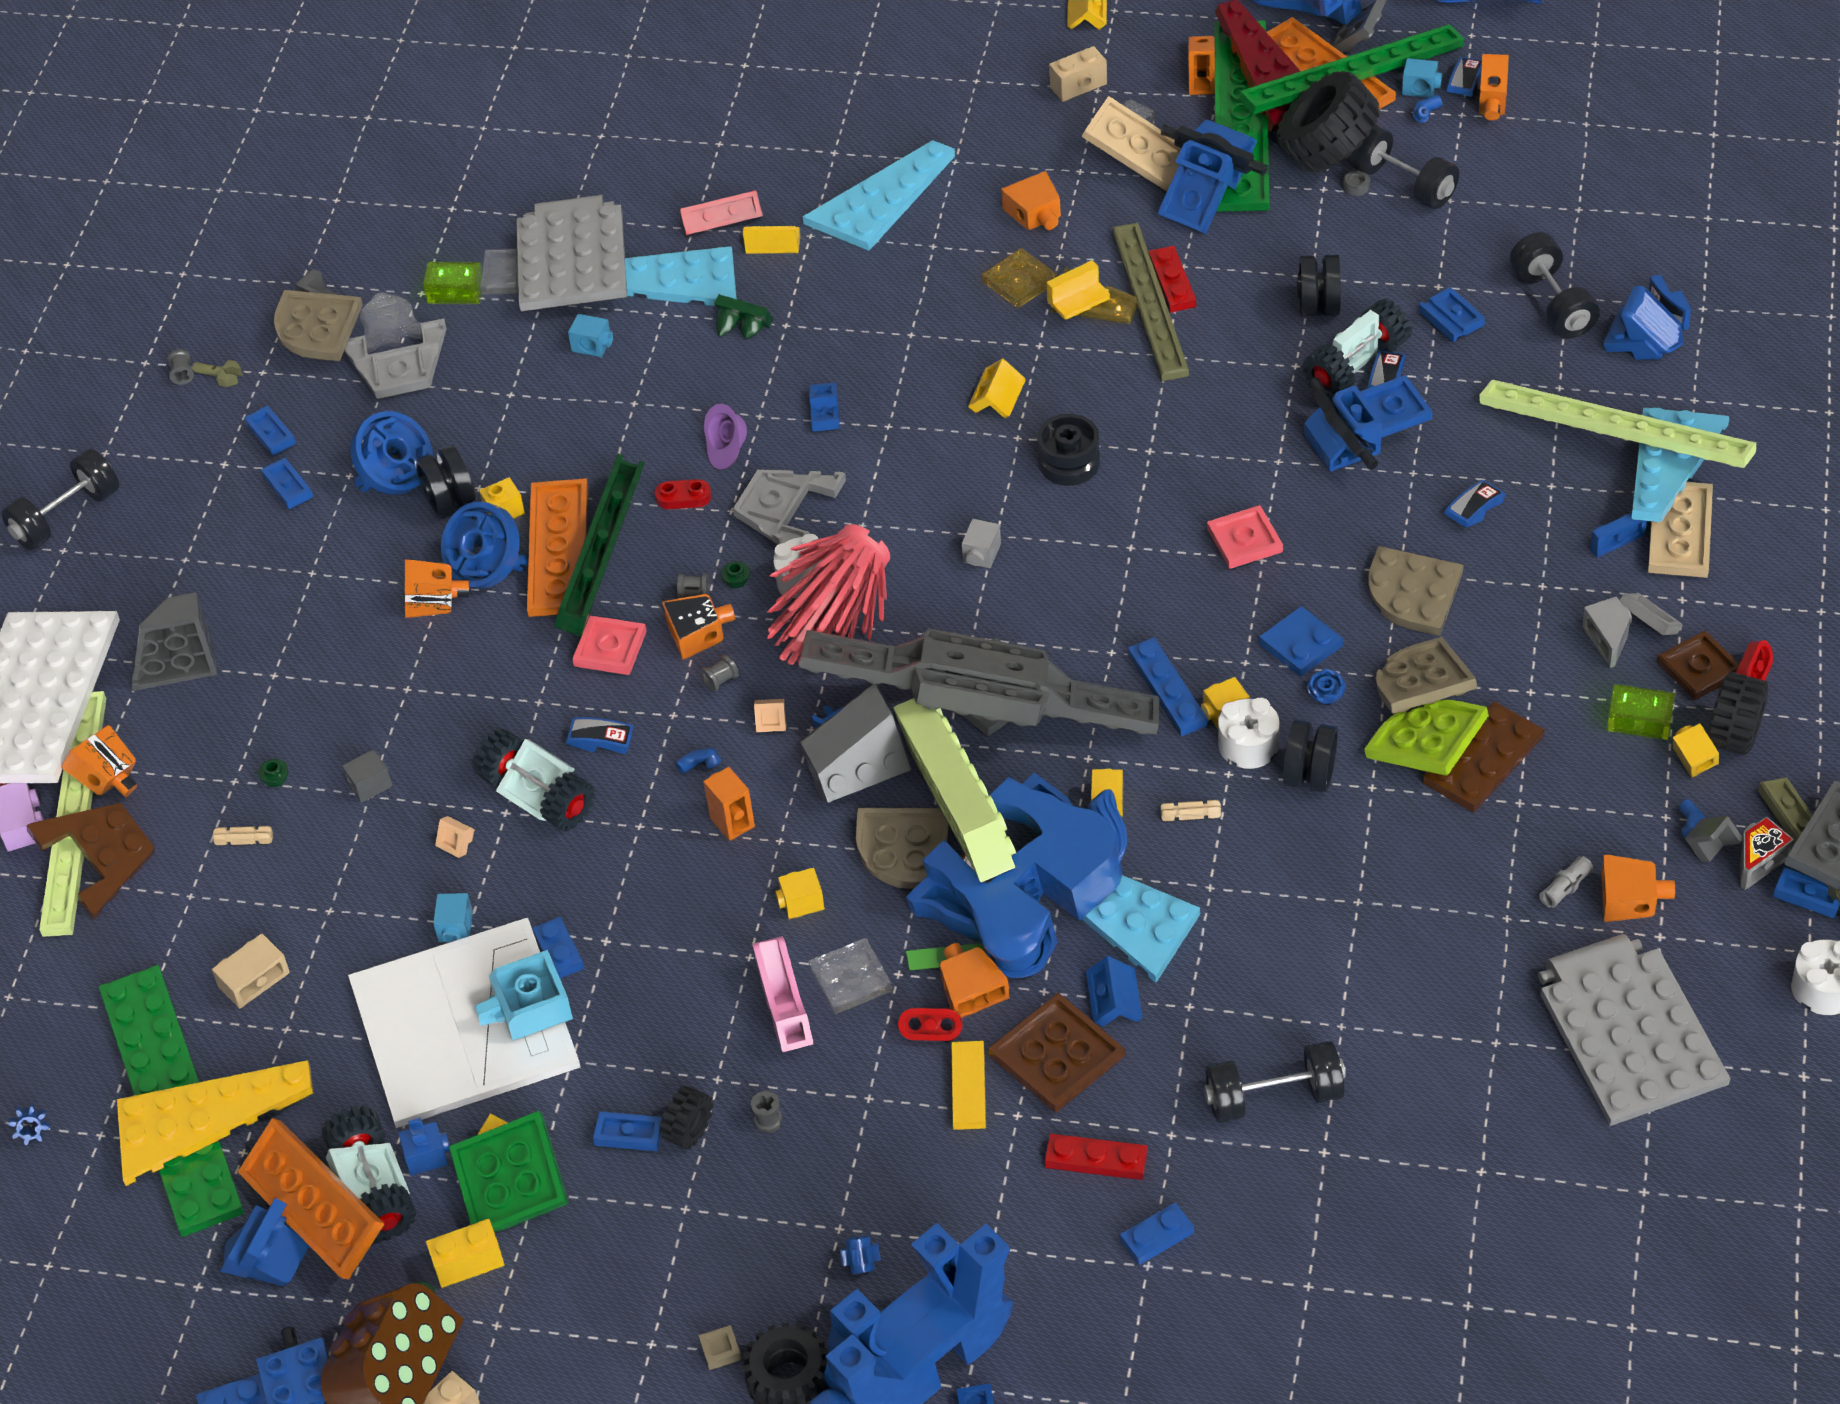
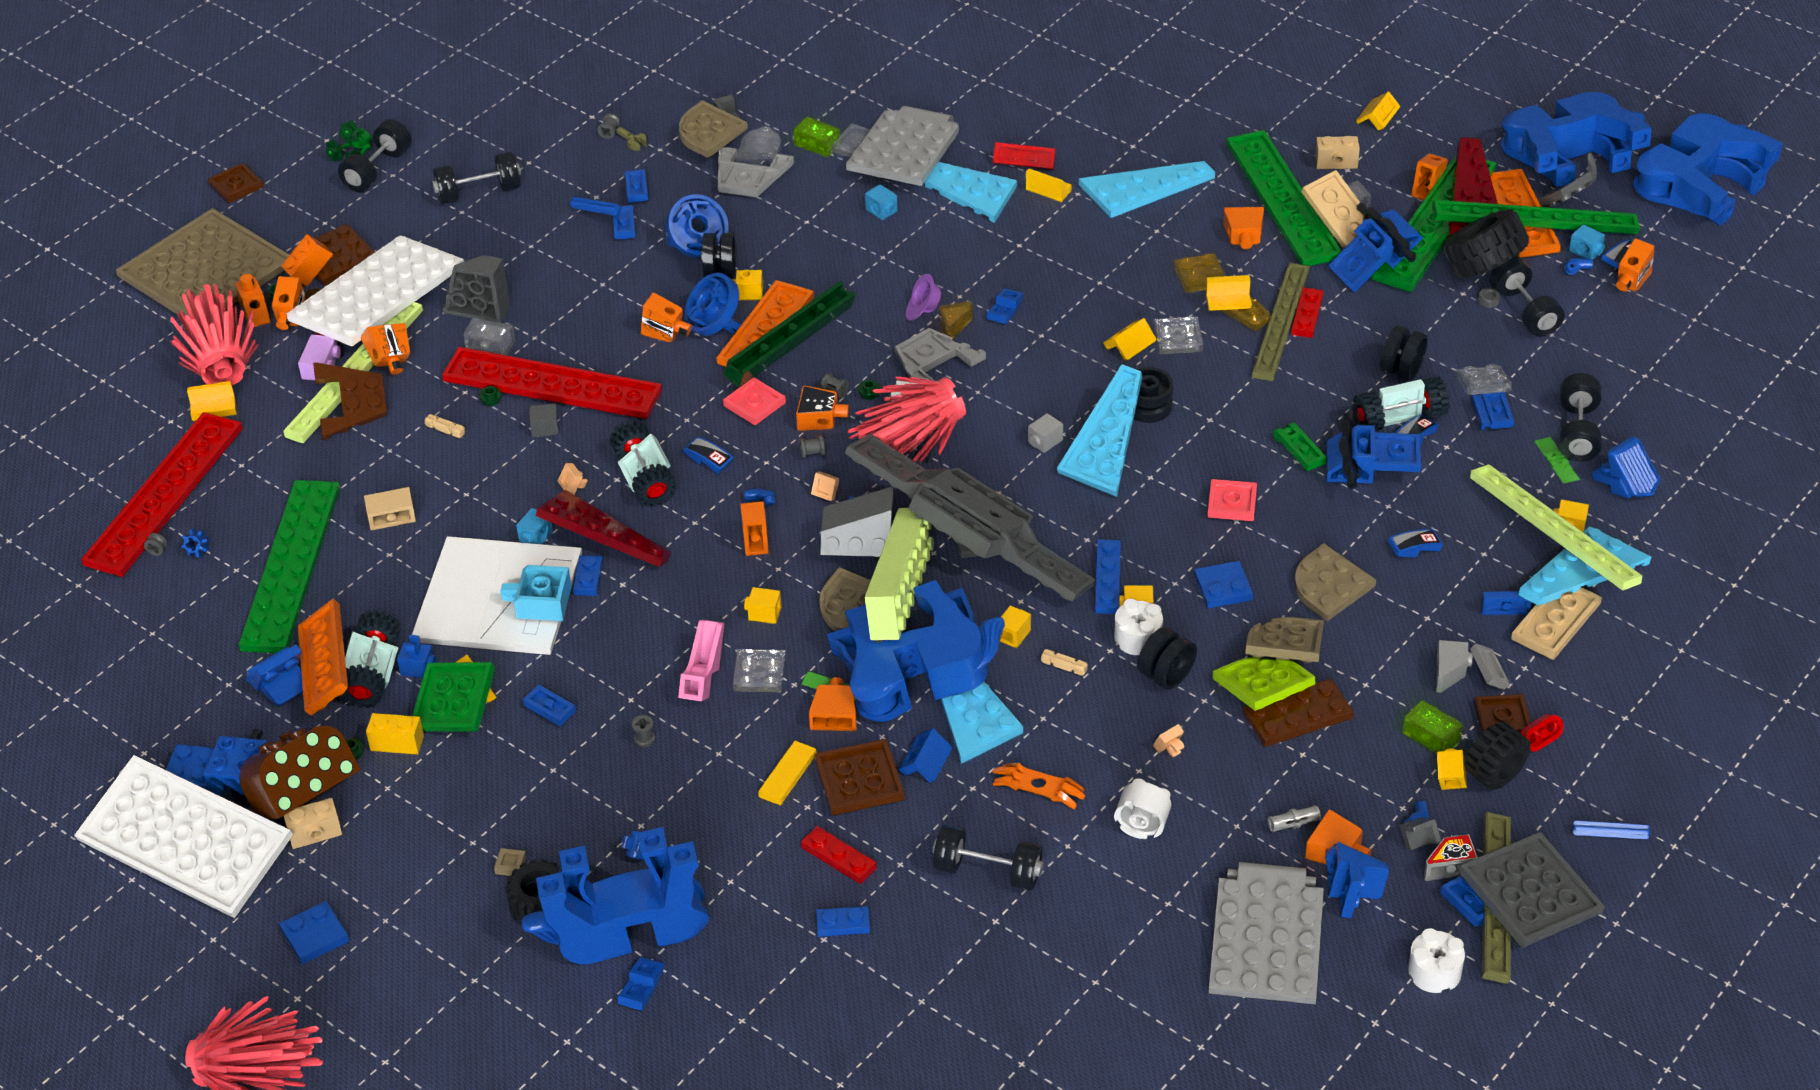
camera: 25 degrees right, 5 degrees down
(192, 1116) = (296, 579): yellow wing -> none
(221, 698) = (489, 336): none -> clear brick
(237, 476) = (595, 206): none -> blue axle
(340, 724) = (553, 382): none -> red plate
(521, 881) = (582, 518): none -> dark red wing
(683, 494) = (871, 326): red plate -> none
(686, 1117) = (587, 710): black tyre -> none
(733, 310) = (986, 221): dark green tile -> none
(776, 445) = (955, 317): none -> clear yellow slope
(930, 1024) = (789, 723): red plate -> none
(1049, 363) = (1178, 335): none -> clear plate
(1054, 151) = (1283, 198): none -> green plate
(1058, 528) = (1102, 443): none -> medium azure wing
(1240, 967) = (1054, 788): none -> orange piece
(1274, 441) = (1300, 446): none -> green plate
(1324, 679) = (1217, 620): blue plate -> none
(1375, 852) = (1171, 741): none -> light nougat tile
(1406, 946) = (1143, 809): none -> white brick
(1420, 282) = (1483, 379): none -> clear plate
(1553, 344) = (1557, 460): none -> bright green piece
(1621, 398) = (1574, 513): none -> yellow brick
(1674, 301) = (1662, 462): blue slope -> none
(1678, 921) = (1353, 876): none -> blue piece

